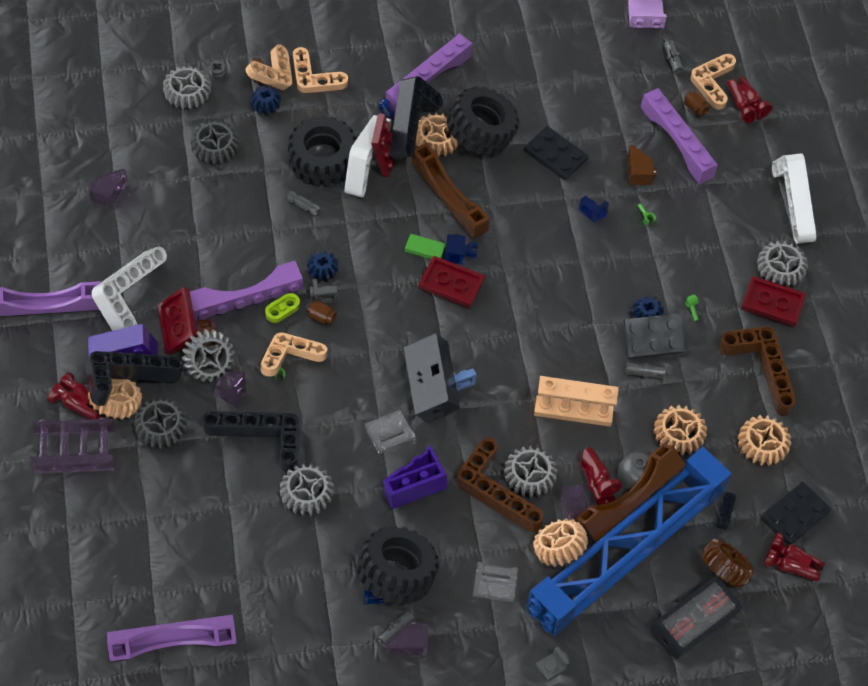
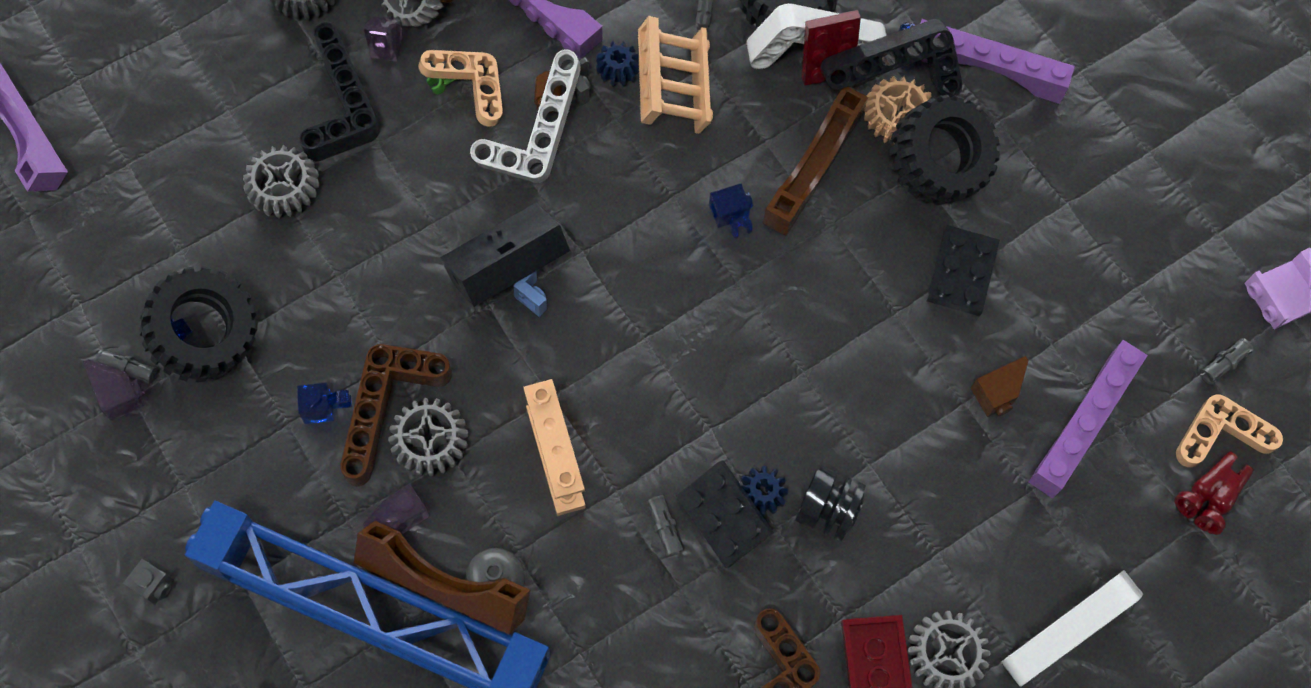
camera: 65 degrees right, 10 degrees up
(281, 308) = (534, 47): lime plate -> none
(348, 247) = (652, 83): none -> light nougat fence
(350, 322) = (541, 128): none -> white beam
(389, 426) = (419, 237): clear plate -> none
(416, 480) = (347, 300): dark purple wedge -> none
(424, 247) = (715, 168): bright green tile -> none
(451, 281) = (677, 223): dark red plate -> none
(479, 522) = (318, 402): none -> clear blue brick
(495, 587) = (234, 460): clear plate -> none
(560, 542) = (307, 518): light nougat gear -> none
(592, 210) = (891, 357): clear blue bracket -> none
(597, 477) = (454, 526): dark red piece -> none
(646, 215) = (930, 427): bright green hand -> none
(673, 278) = (831, 503): none -> black wheel
(683, 424) = (579, 619): light nougat gear -> none
(690, 303) = (814, 546): bright green hand -> none
(696, 103) = (1162, 422): reddish brown brick -> none

